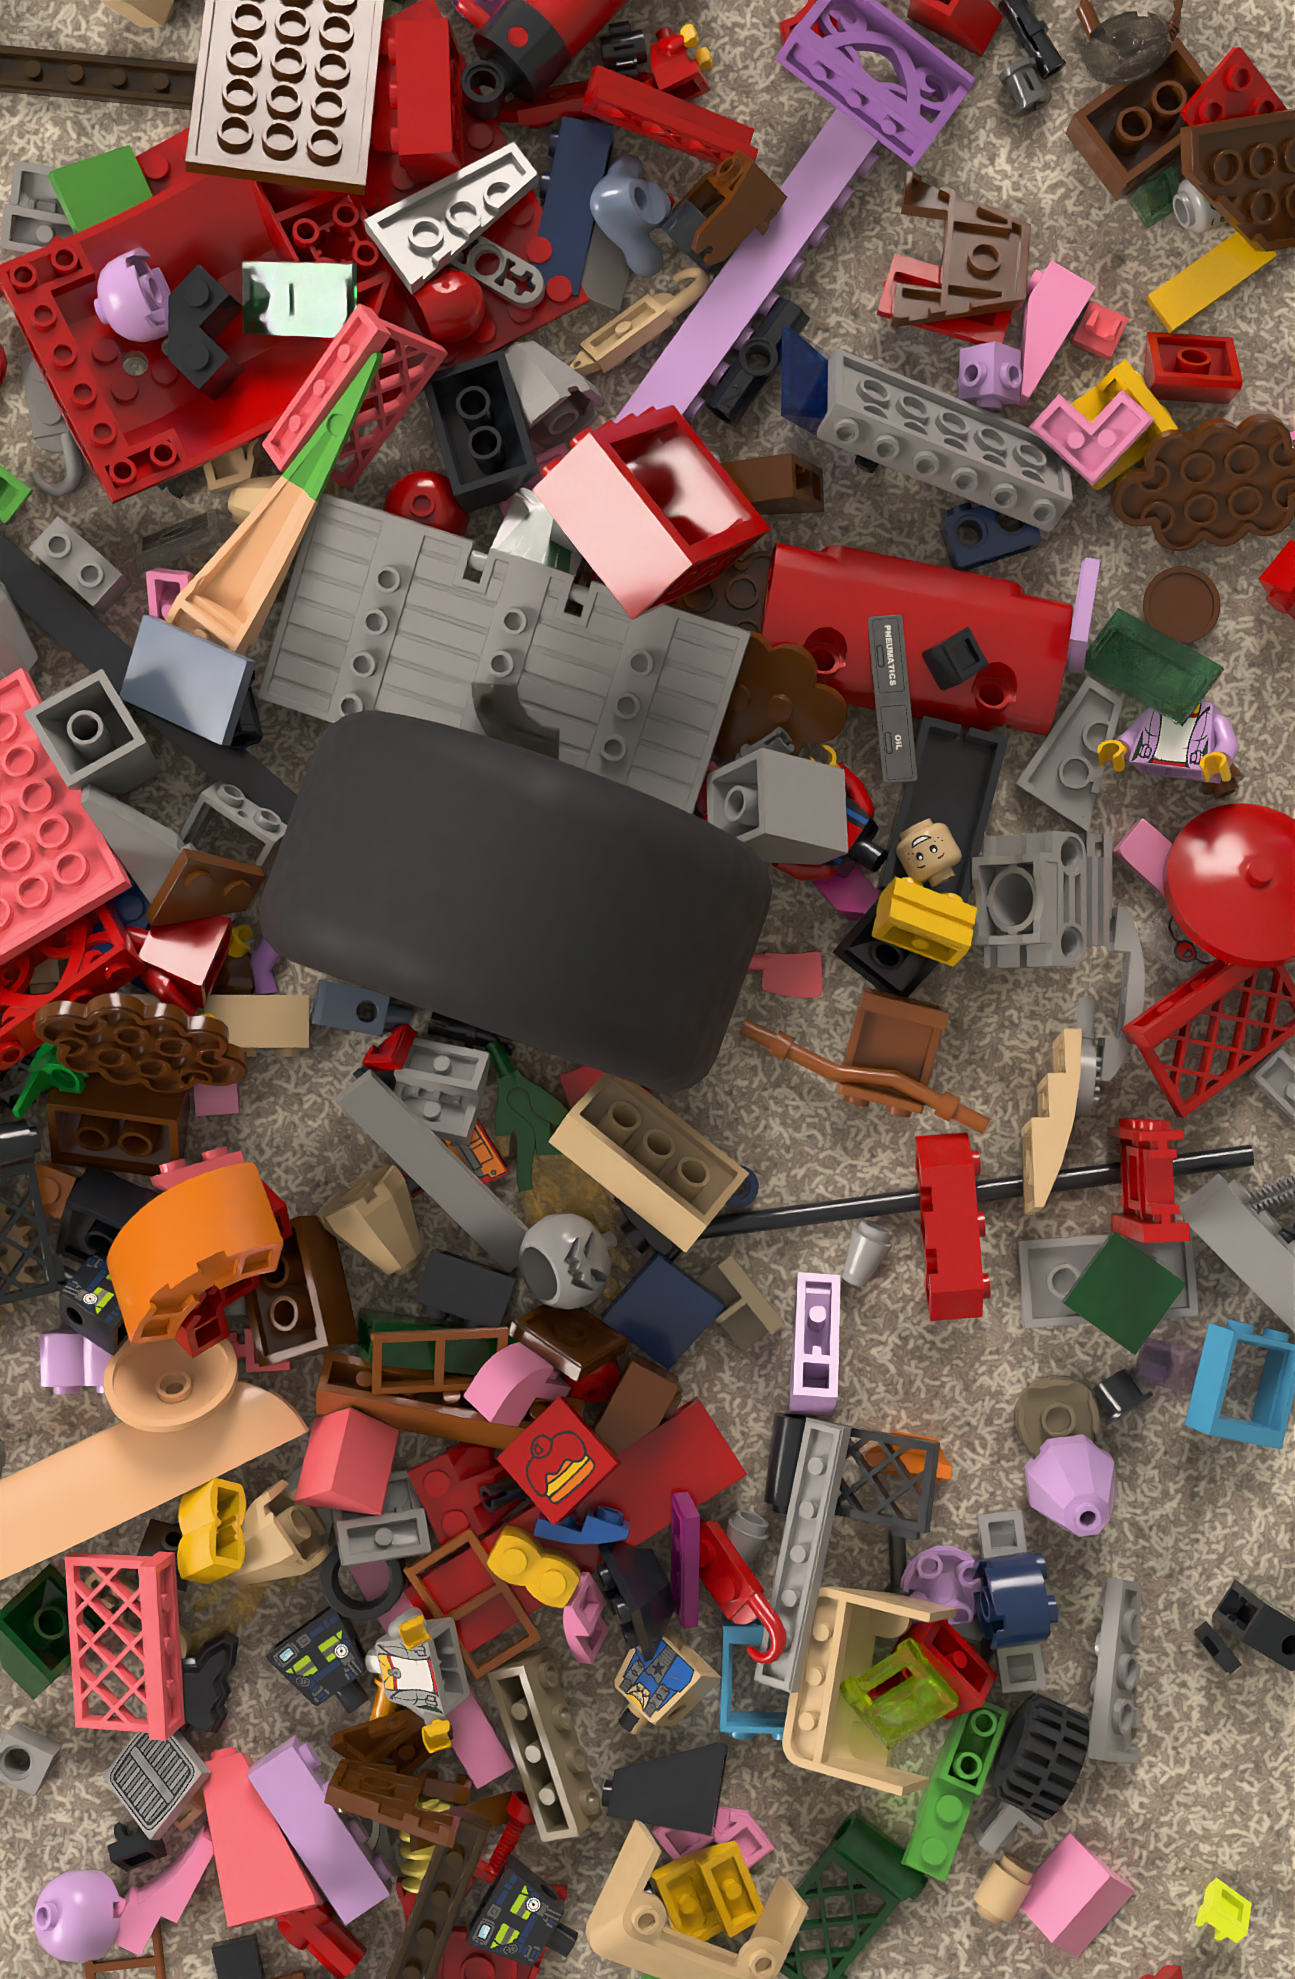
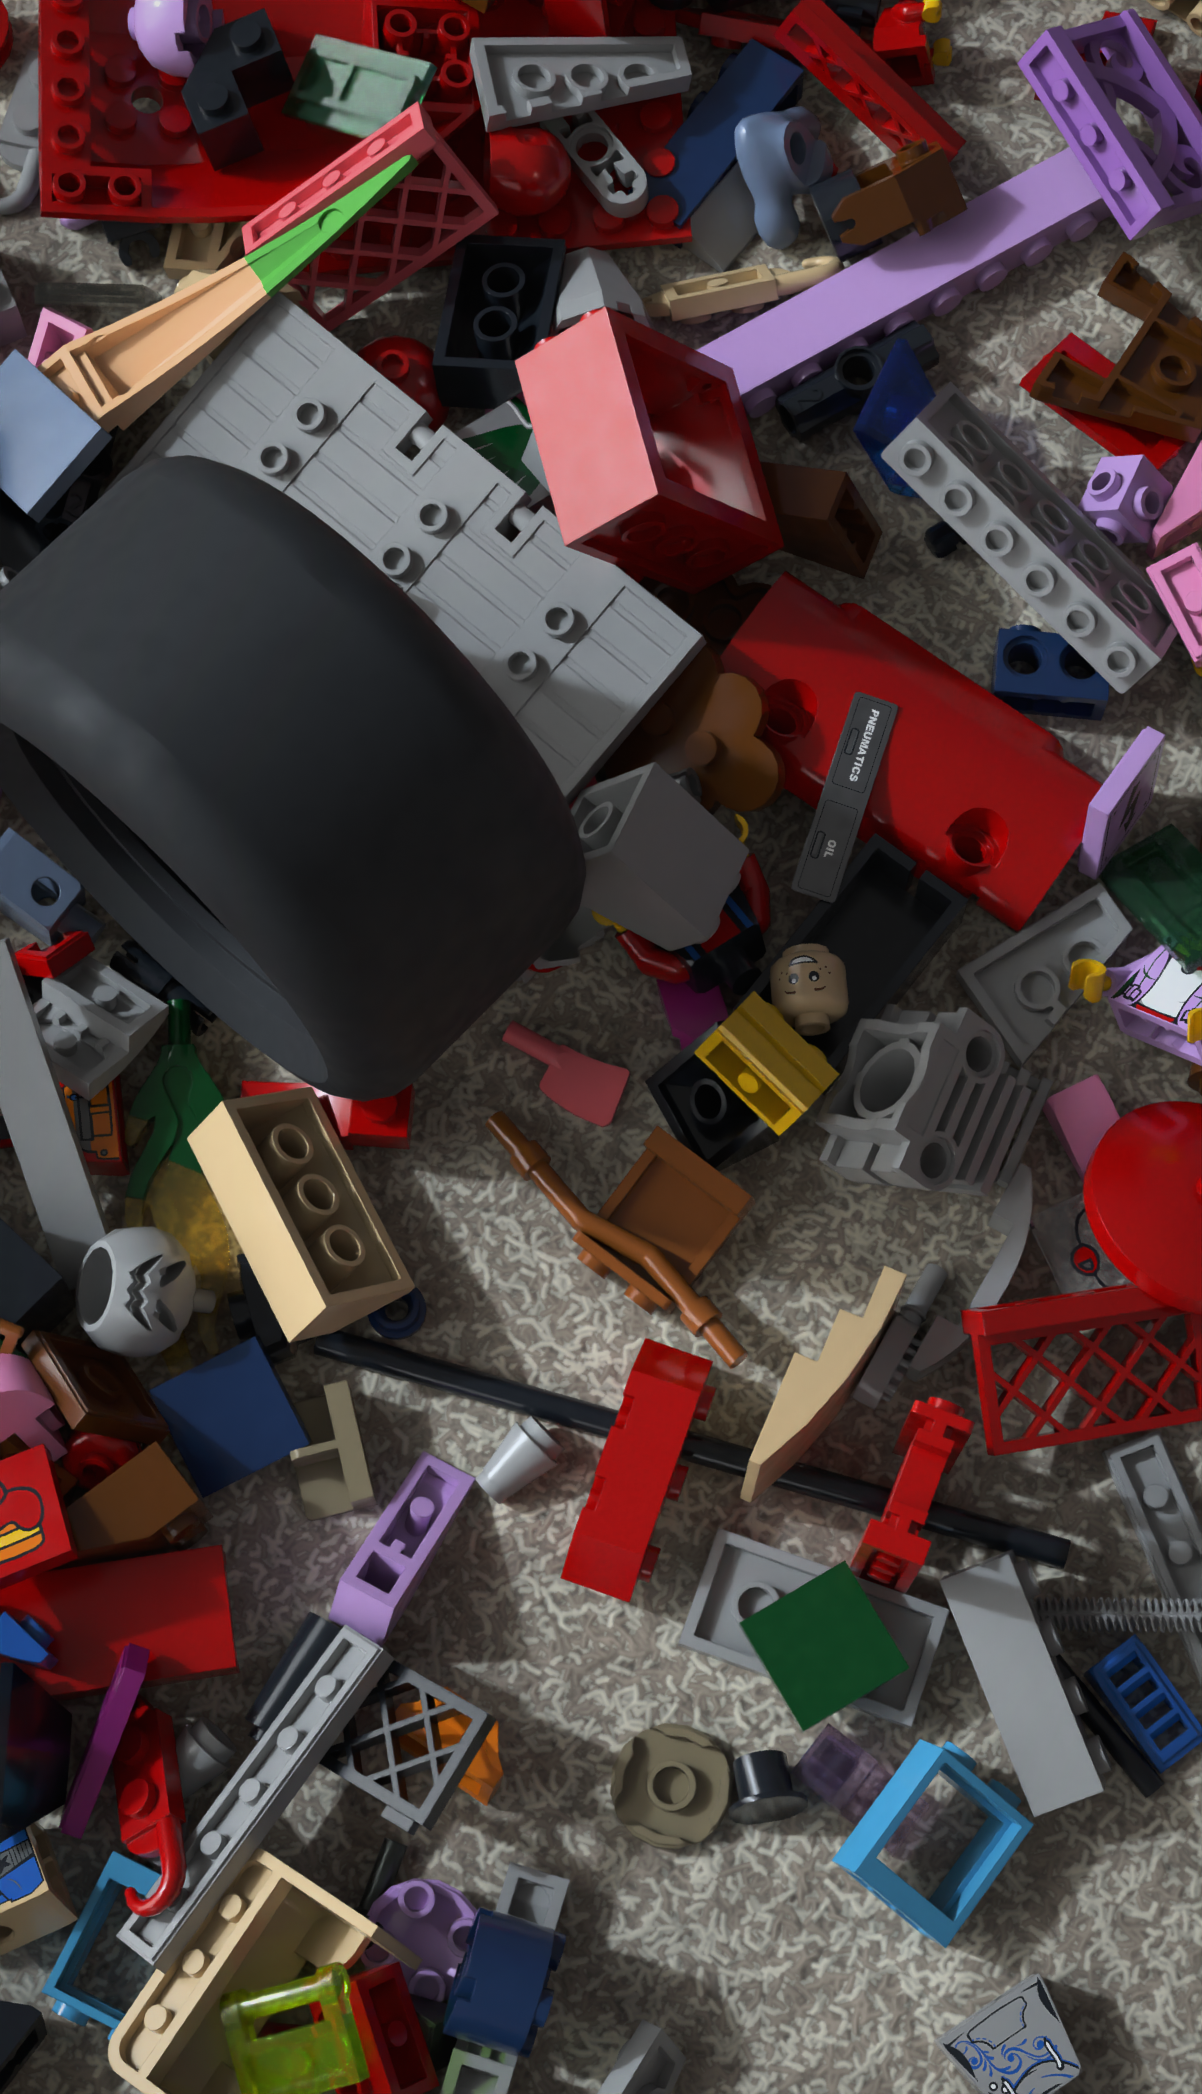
camera: 25 degrees right, 15 degrees down
(955, 659) = (941, 781): black slope -> none
(1072, 1484) = (652, 1871): lavender cone -> none

